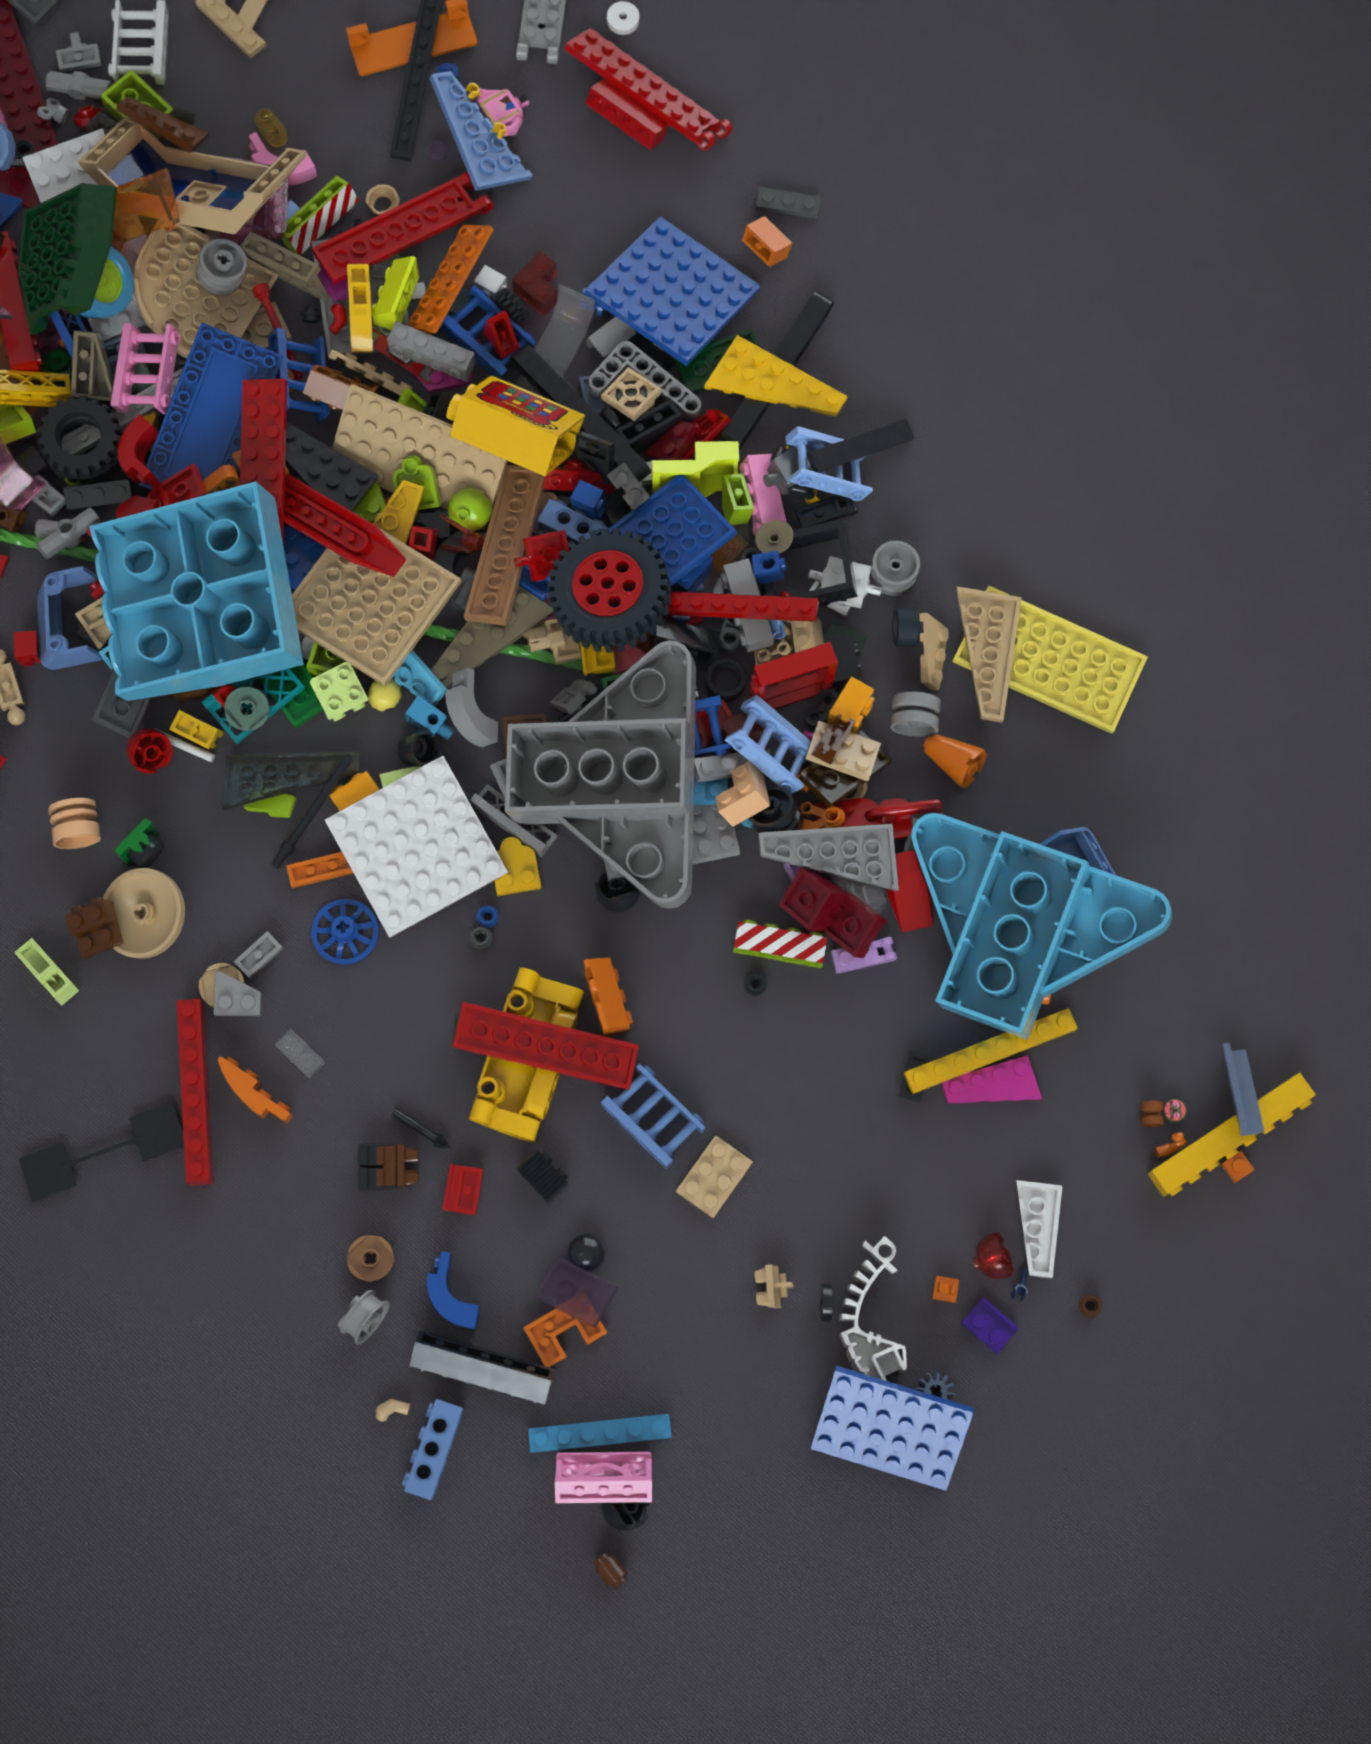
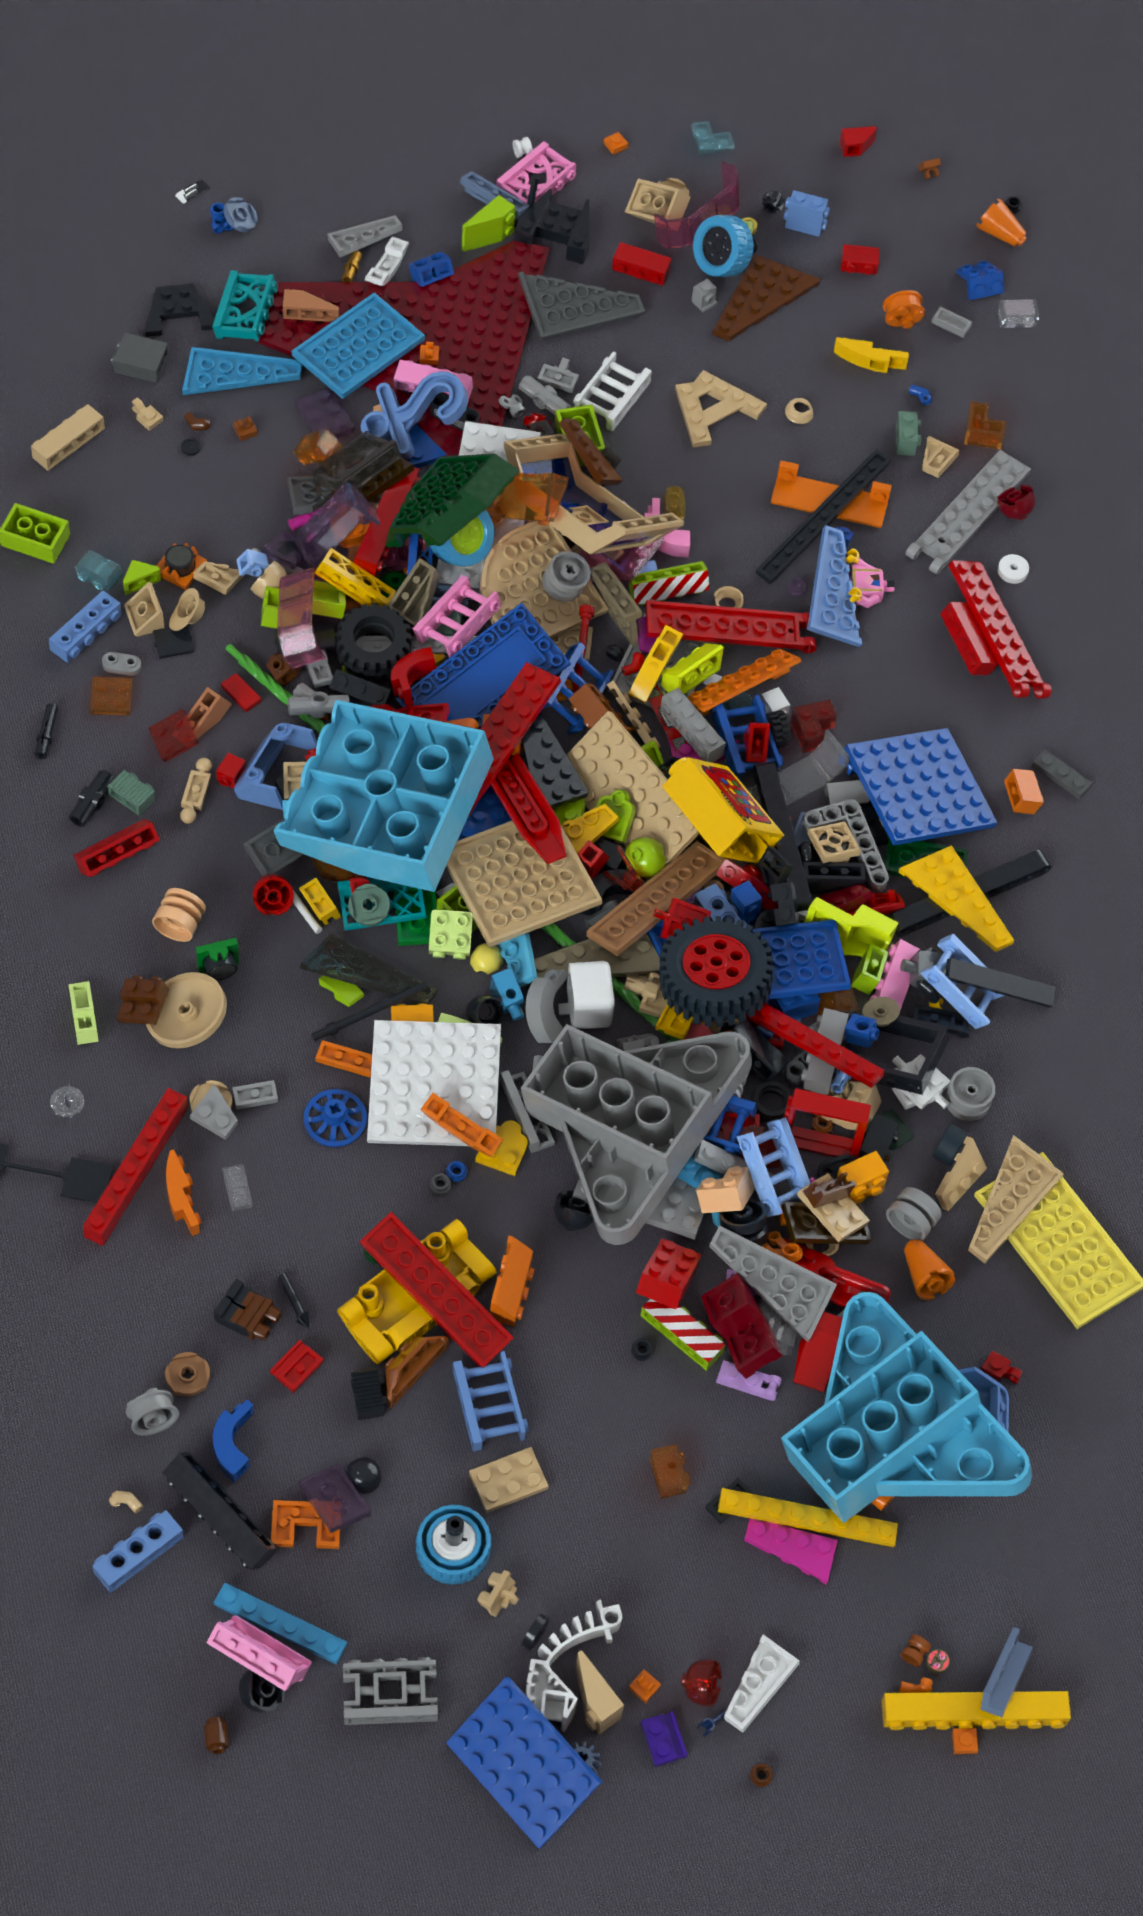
camera: 30 degrees right, 15 degrees down
(78, 1068) = (72, 1094): none -> clear gear
(469, 875) = (460, 1126): none -> orange slope
(503, 677) = (589, 995): none -> white piece
(563, 1126) = (411, 1364): none -> dark orange wedge
(706, 1268) = (453, 1544): none -> dark azure wheel
(739, 902) = (668, 1273): none -> red brick
(744, 1449) = (390, 1709): none -> light grey fence
(848, 1082) = (669, 1471): none -> clear orange brick
(917, 1331) = (599, 1701): none -> tan slope
(1066, 810) = (998, 1367): none -> red plate

